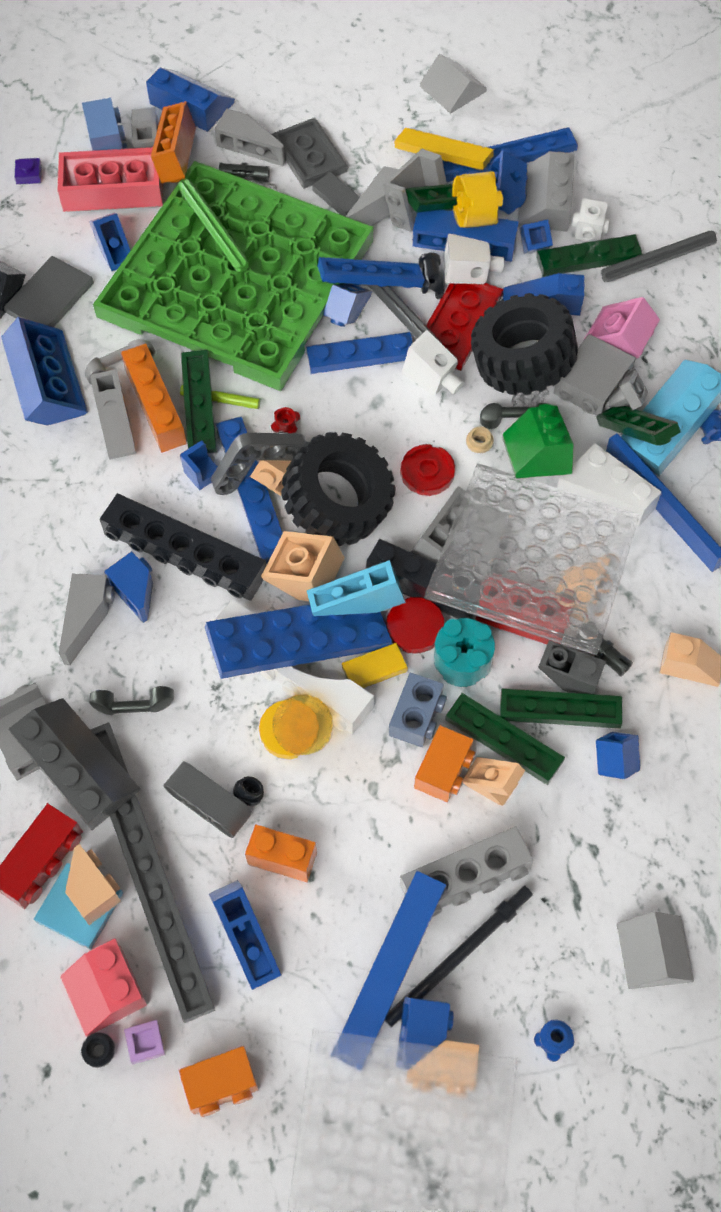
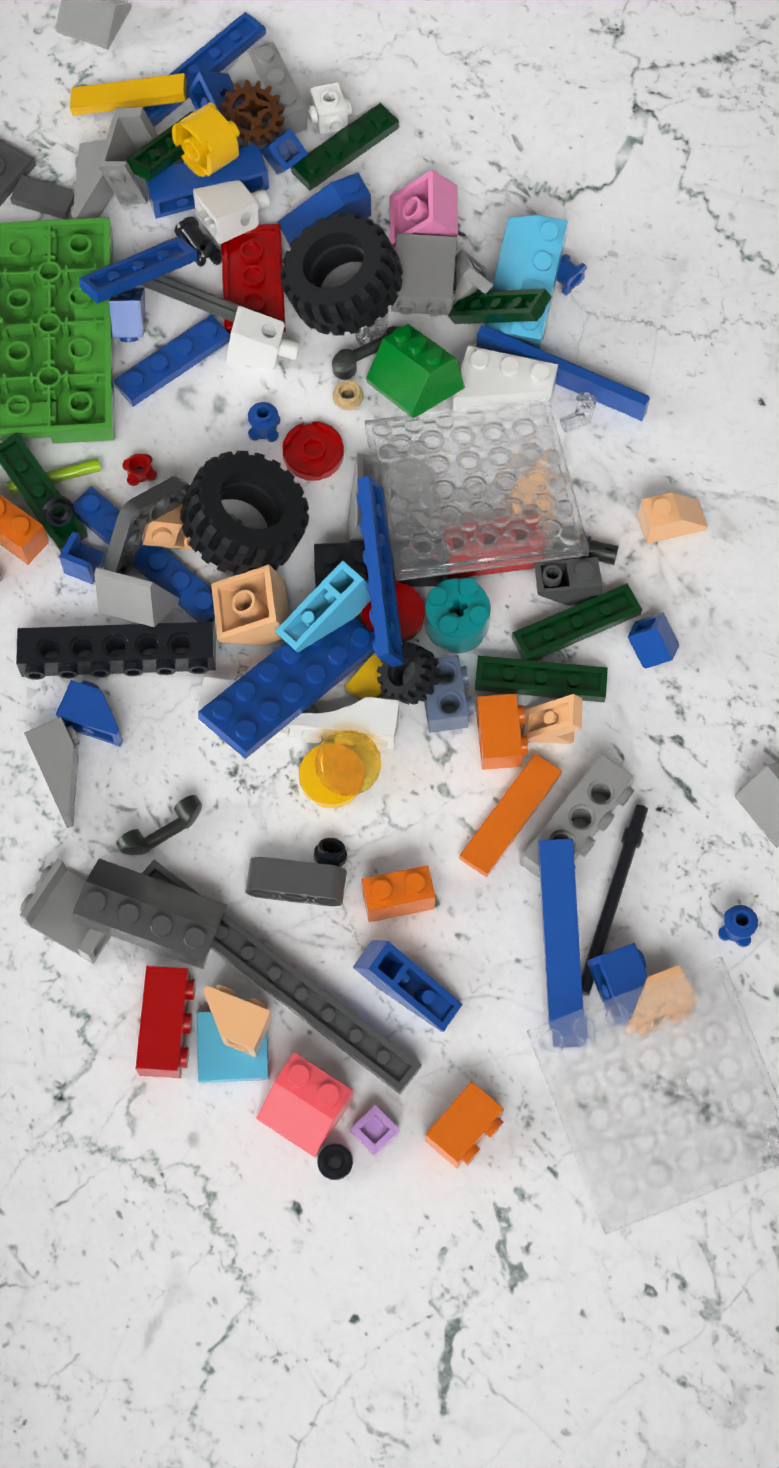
camera: 30 degrees left, 5 degrees up
(196, 426) = (58, 519): none -> black plate
(215, 513) = (132, 598): none -> light grey slope
(401, 429) = (263, 421): none -> blue brick
(402, 685) = (421, 681): none -> black tyre
(413, 585) = (380, 580): none -> blue plate
(414, 838) = (510, 815): none -> orange tile
(538, 199) = (265, 110): none -> reddish brown gear
(658, 256) = (416, 116): dark grey axle -> none
(664, 542) = (583, 412): none -> clear arm

